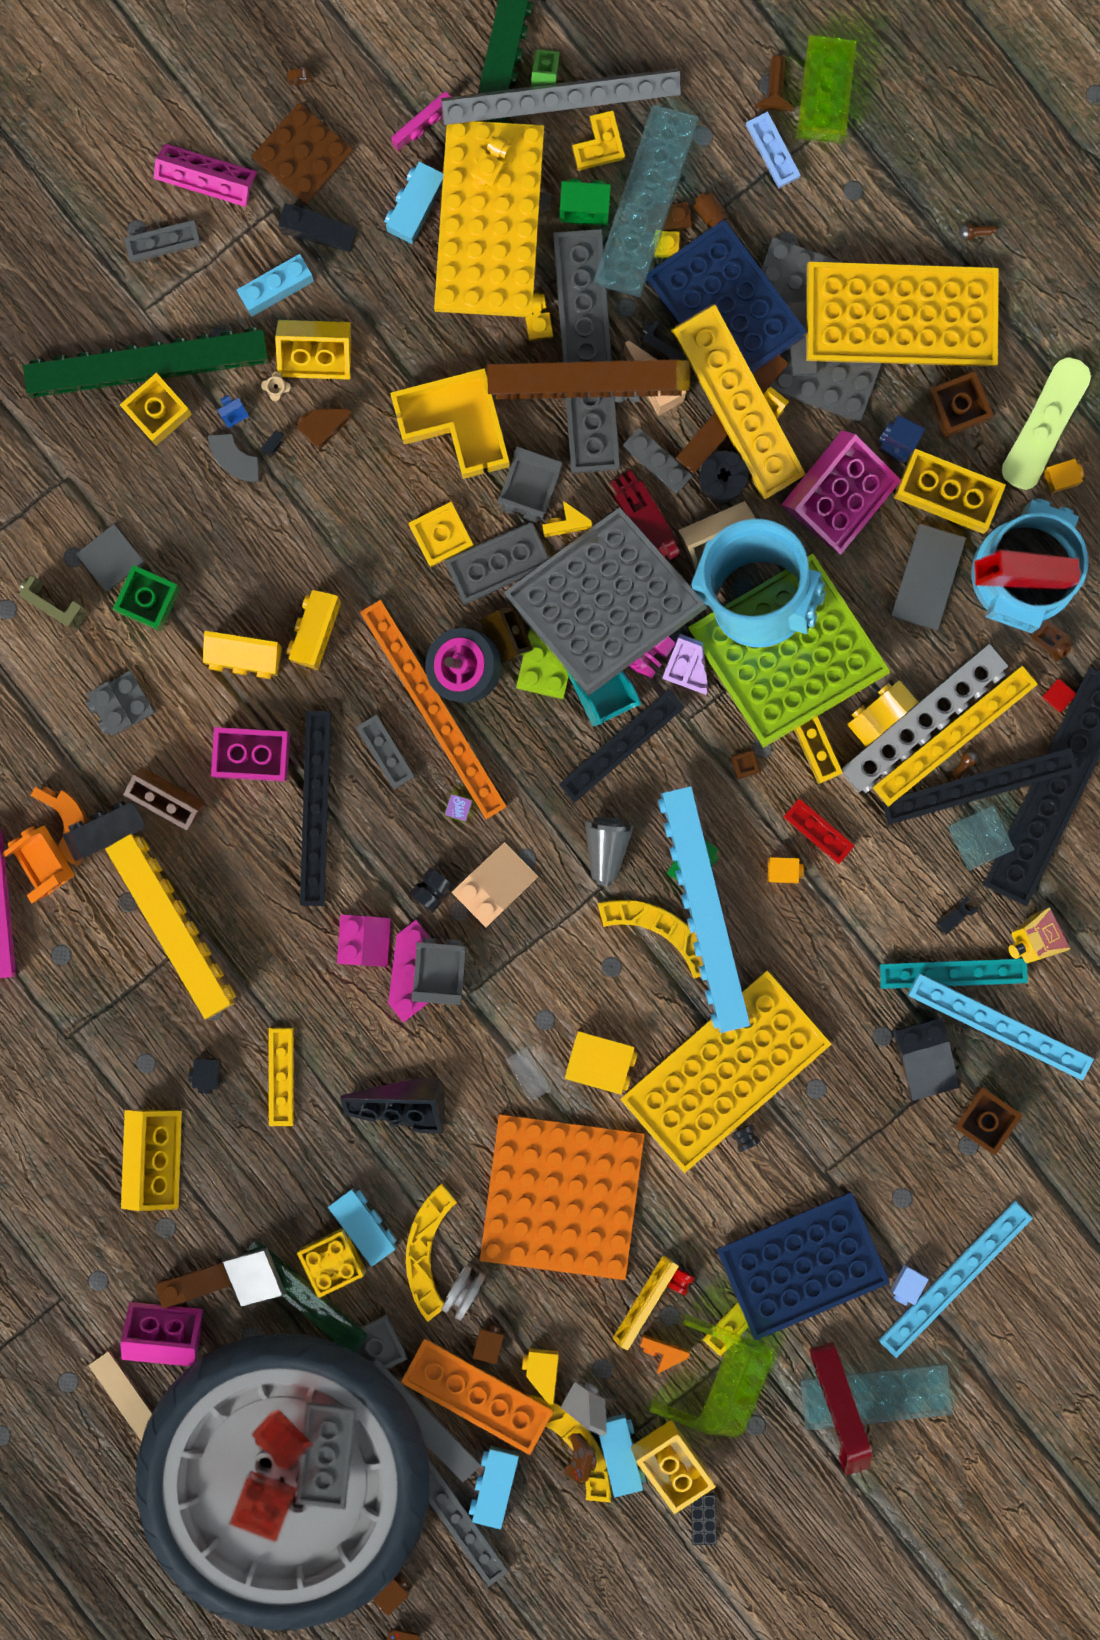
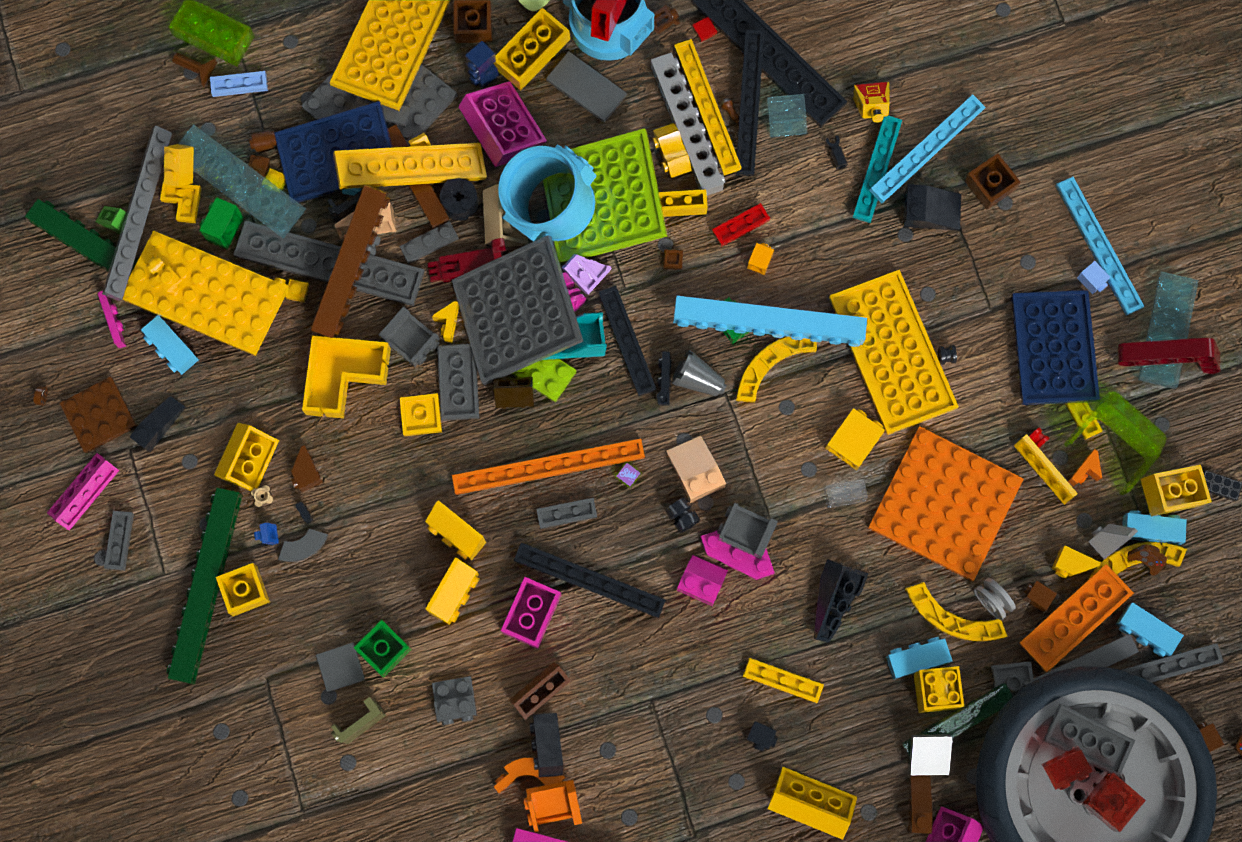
camera: 65 degrees left, 10 degrees down
(170, 925) = (639, 720): yellow brick -> none
(275, 285) = (187, 468): medium azure brick -> none
(463, 665) = (524, 431): wheel -> none
(589, 809) = (664, 381): none -> black hinge
(638, 121) = (178, 165): none -> yellow brick

